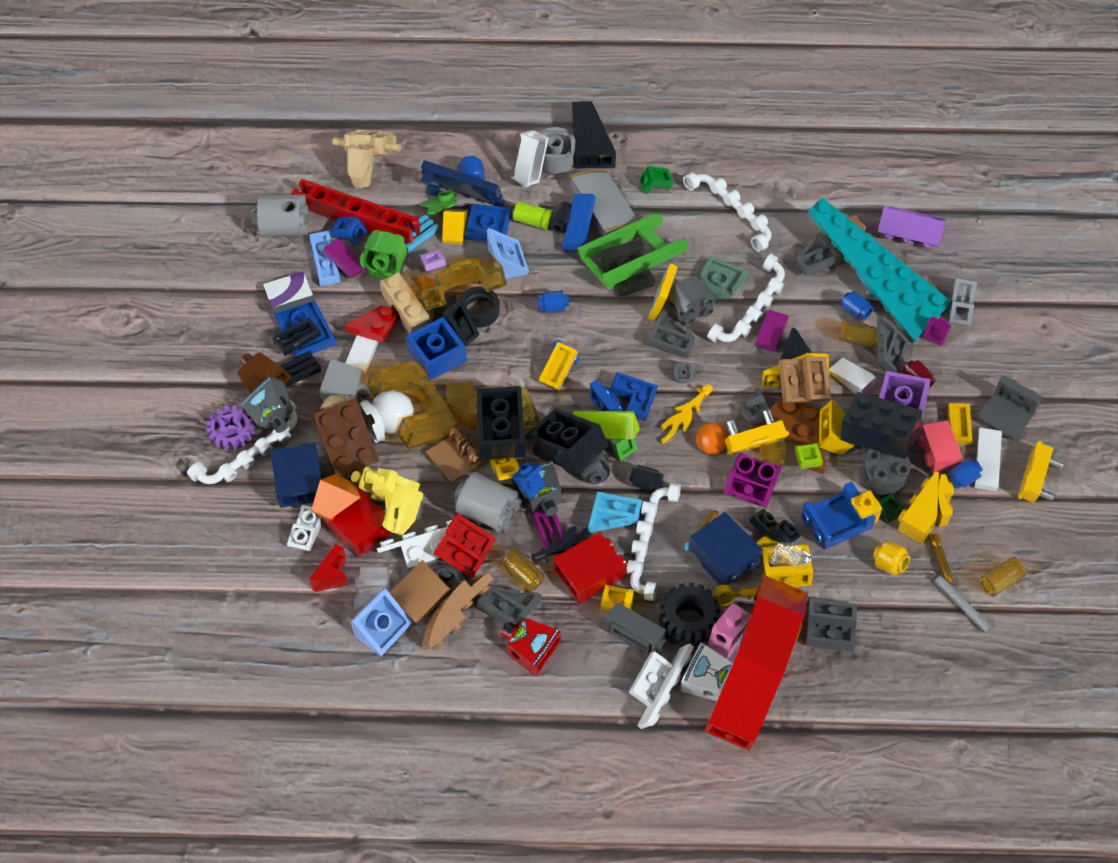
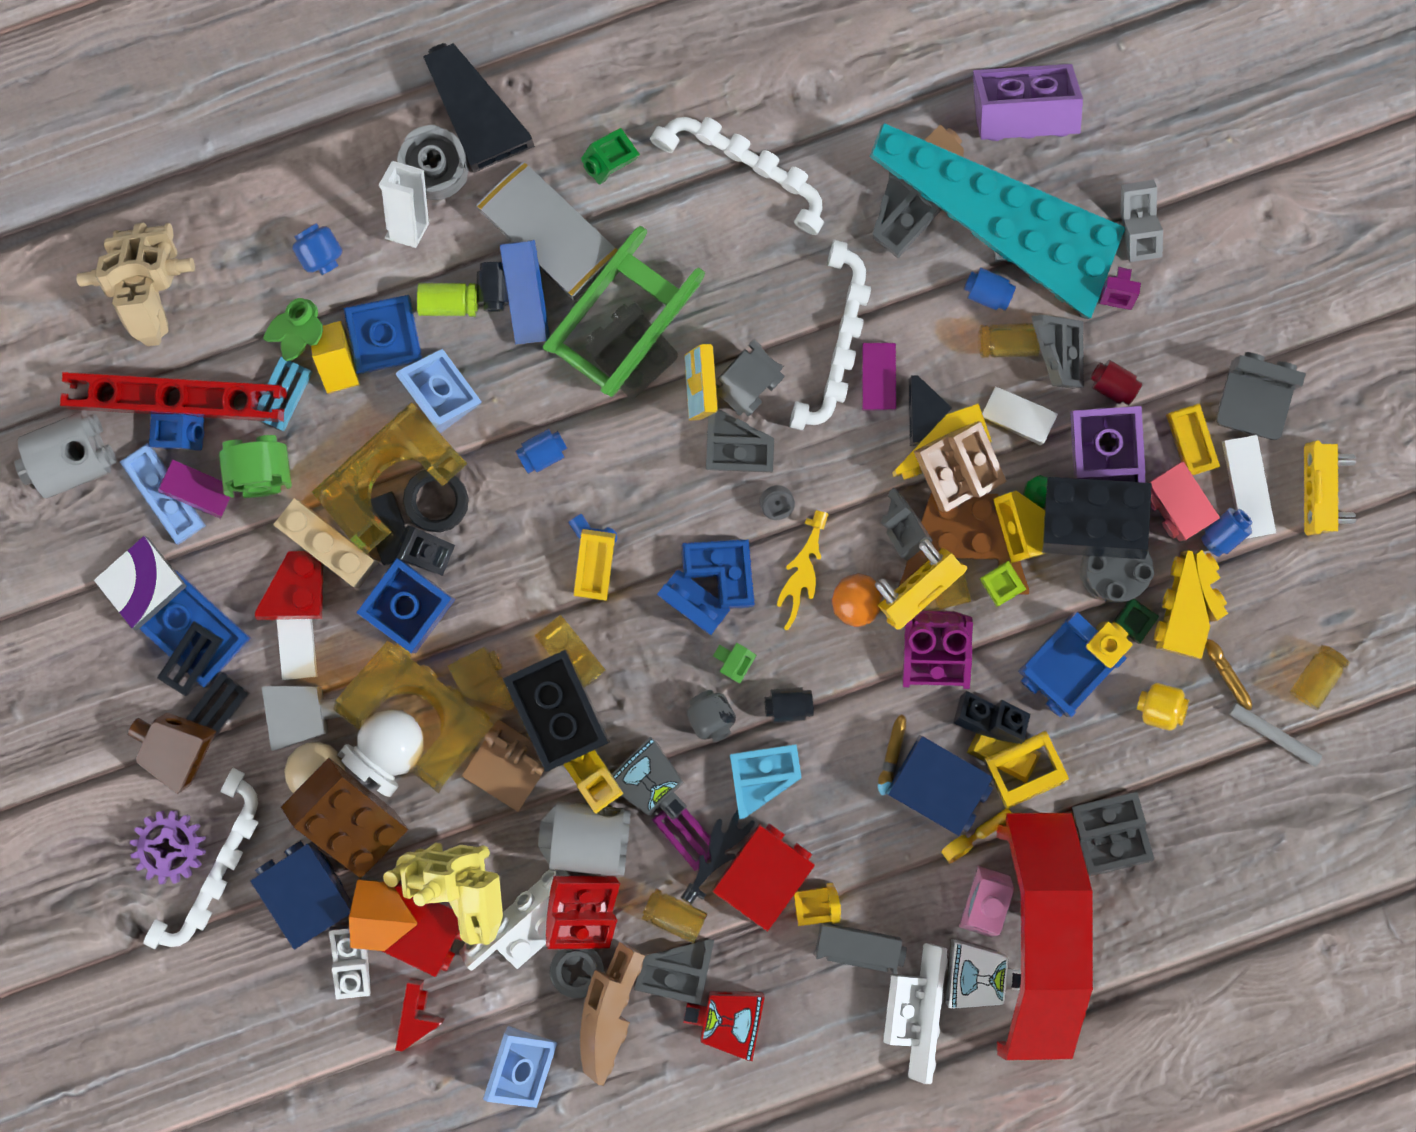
camera: 30 degrees left, 30 degrees up
(269, 405) = (211, 801): dark grey torso -> none
(369, 584) = (484, 1021): clear slope -> none
(420, 591) = (550, 1005): medium nougat slope -> none
(432, 260) = (332, 447): lavender tile -> none
(460, 183) = (268, 290): dark blue piece -> none
(529, 479) = (636, 796): blue bracket -> none
(566, 440) = (660, 702): black brick -> none
(613, 423) = (703, 651): lime slope -> none
(640, 547) = (819, 814): white bar -> none
(694, 599) = (944, 923): black tyre -> none
(723, 277) = (772, 308): sand green tile -> none
(790, 553) = (1032, 767): clear bracket -> none

